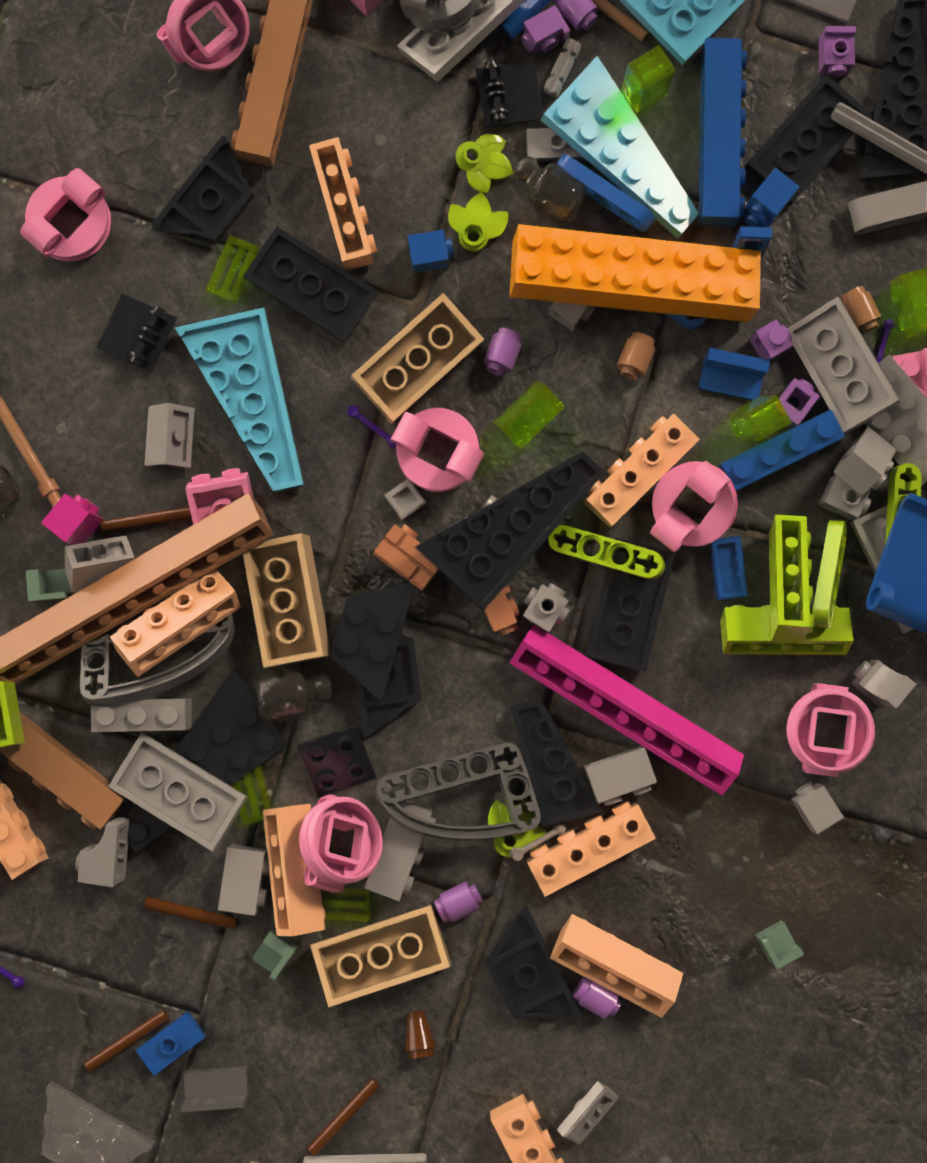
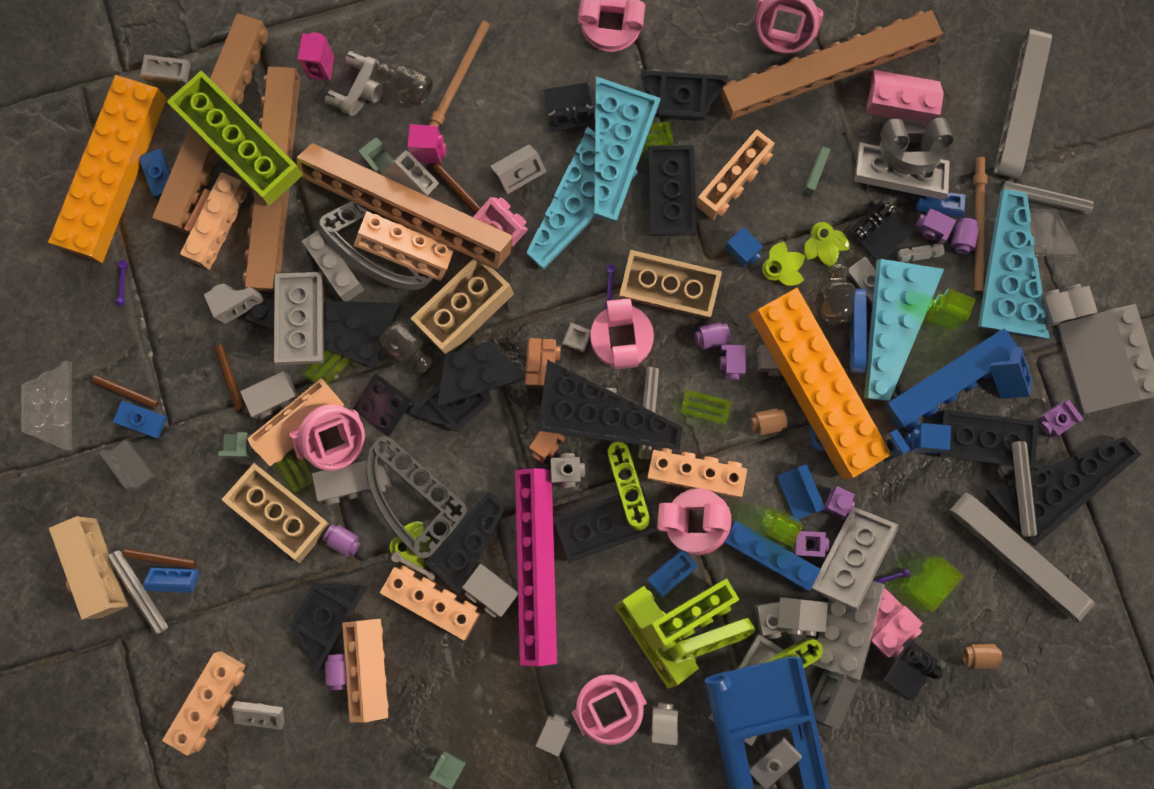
camera: 60 degrees right, 5 degrees down
(209, 296) = (621, 131): none -> medium azure wing
(377, 1118) = (171, 580): none -> blue plate
(397, 114) = (816, 171): none -> sand green tile
(418, 1035) = (240, 572): reddish brown cone -> none
(528, 414) = (682, 377): clear neon green brick -> none
(529, 468) = (649, 402): none -> light grey axle
(546, 349) = (733, 361): none -> medium lavender brick
(555, 429) = (688, 393): none -> clear neon green tile
(763, 68) = (1012, 376): none -> blue panel
(861, 309) = (901, 547): medium nougat brick -> none

